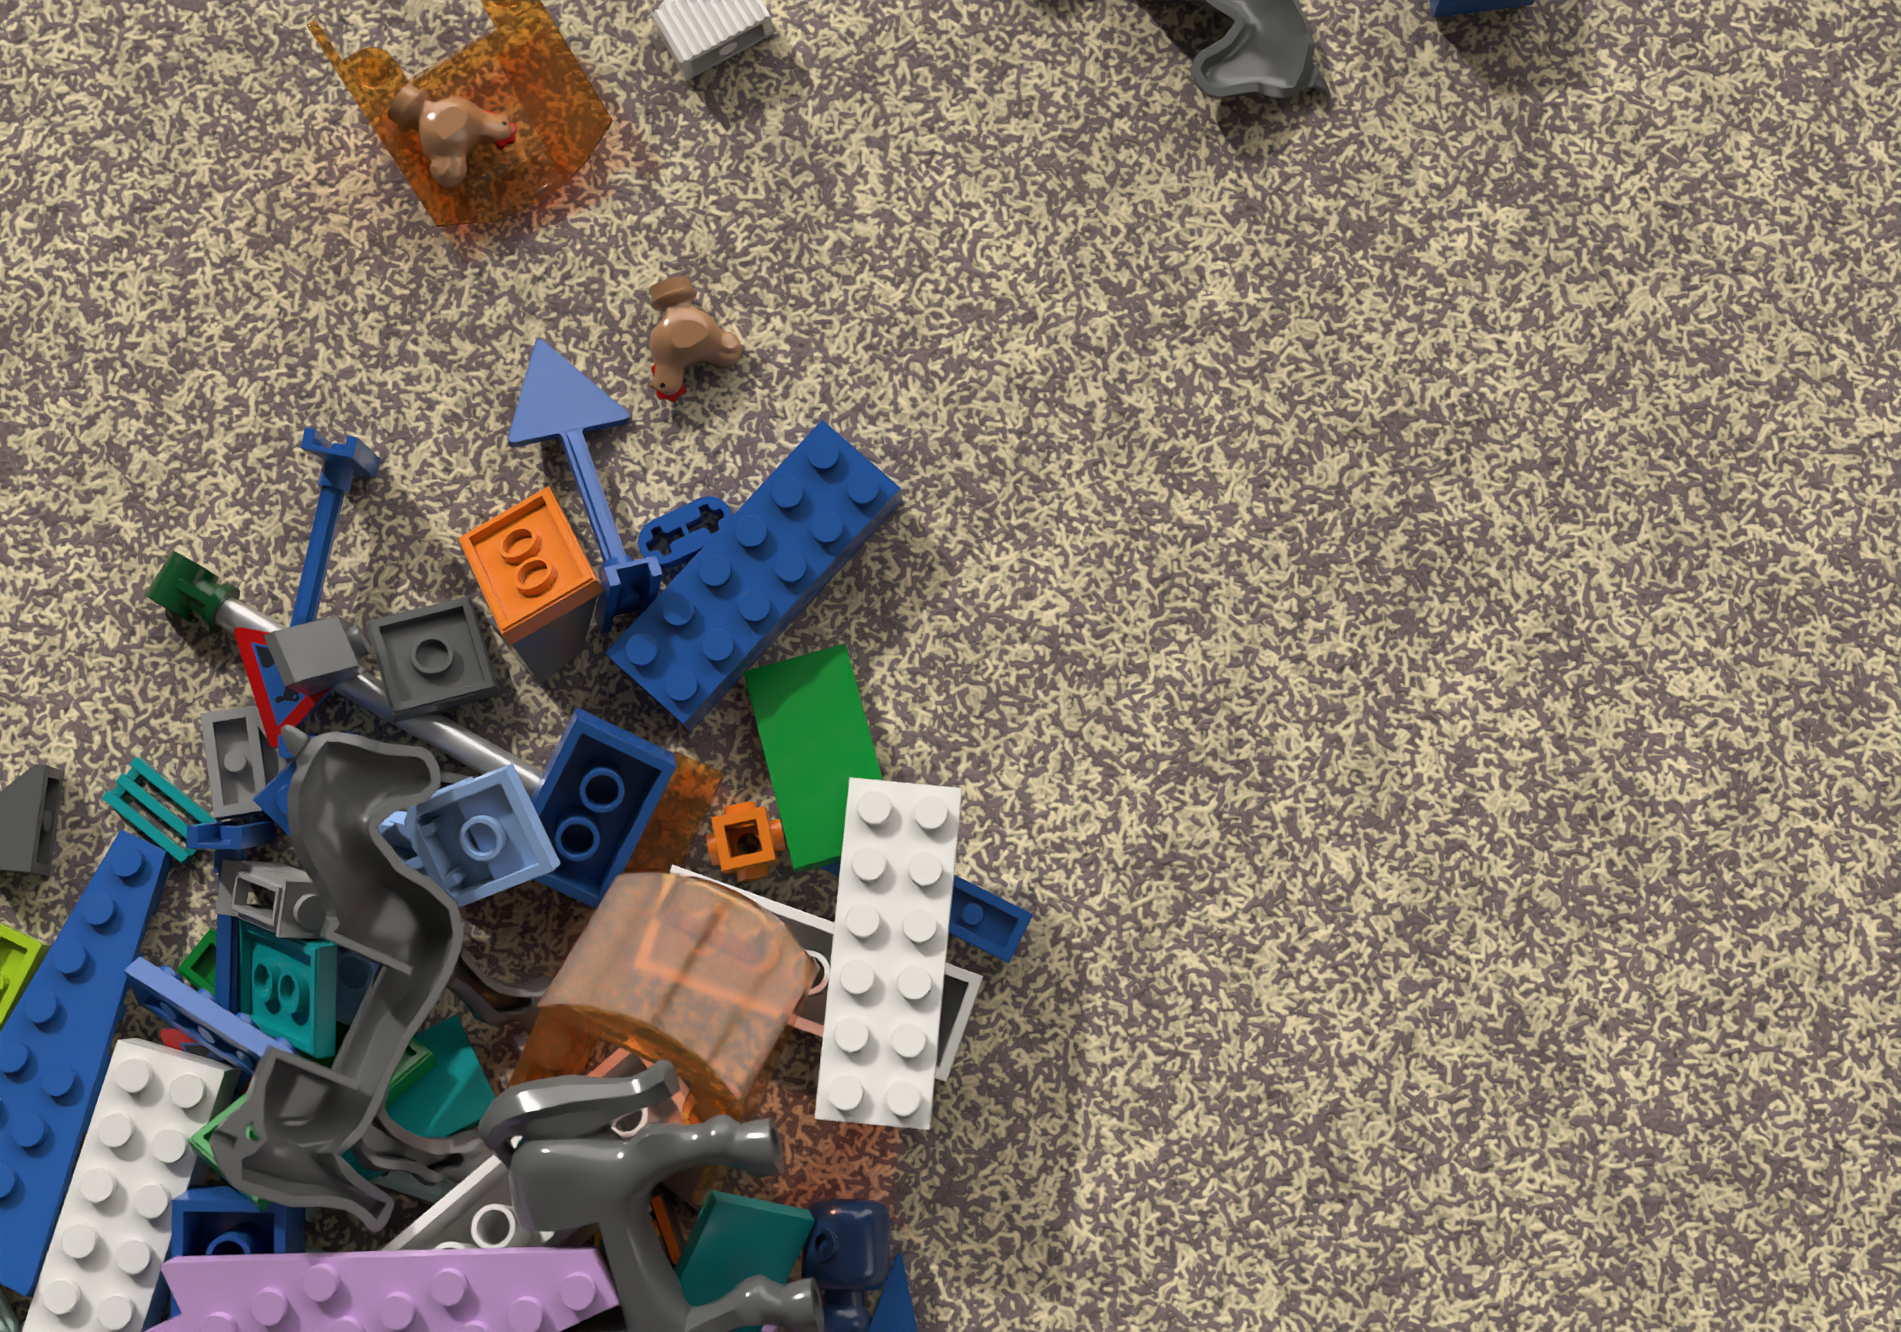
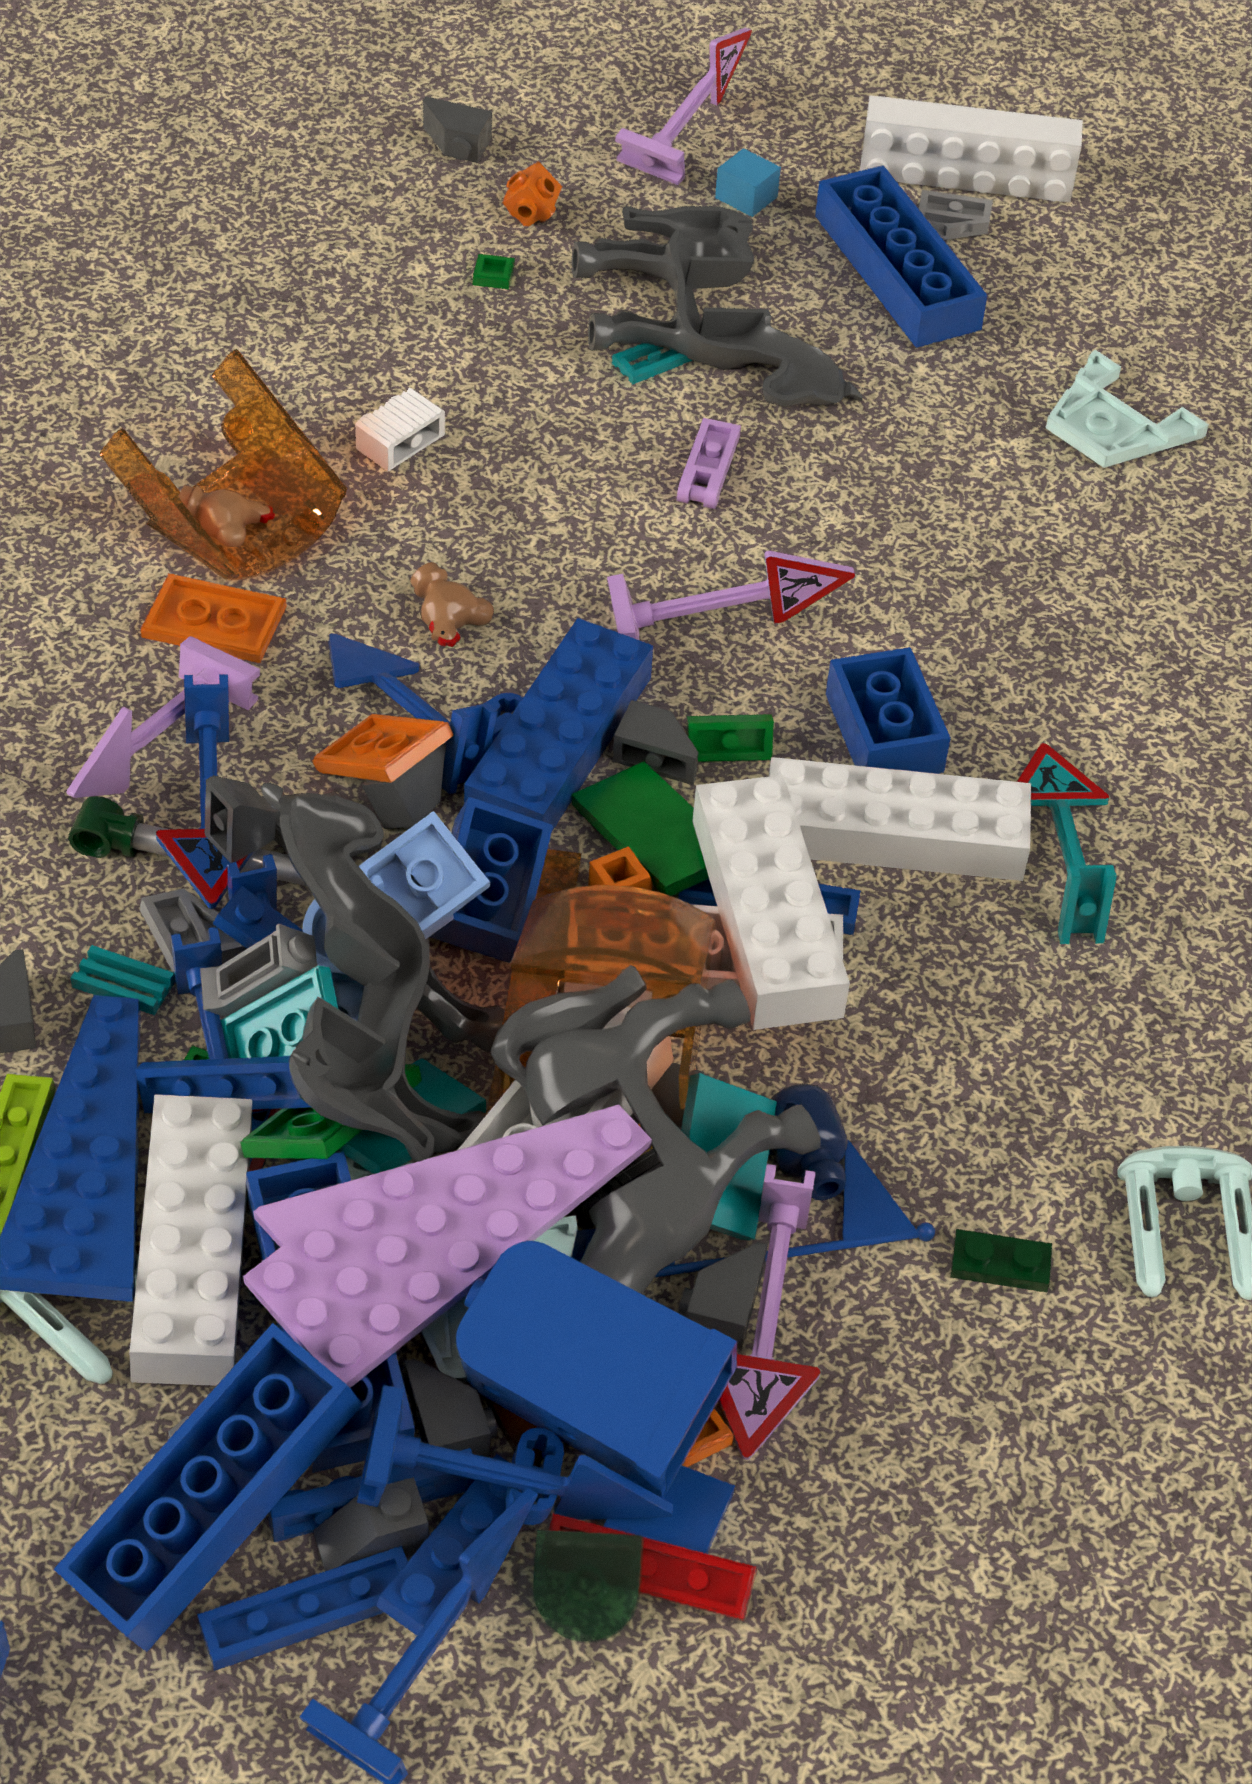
camera: 25 degrees left, 30 degrees down
(214, 504) = (109, 763): none -> lavender piece
(406, 281) = (216, 614): none -> orange tile
(863, 616) = (658, 740): none -> dark grey slope
(899, 411) = (790, 585): none -> lavender piece
(973, 638) = (732, 737): none -> green tile
(1088, 166) = (708, 462): none -> lavender plate
(1117, 818) = (910, 818): none -> white brick
(1158, 659) = (887, 712): none -> blue brick
(1332, 805) = (1087, 887): none -> teal piece
(1629, 220) = (1109, 428): none -> light aqua wing

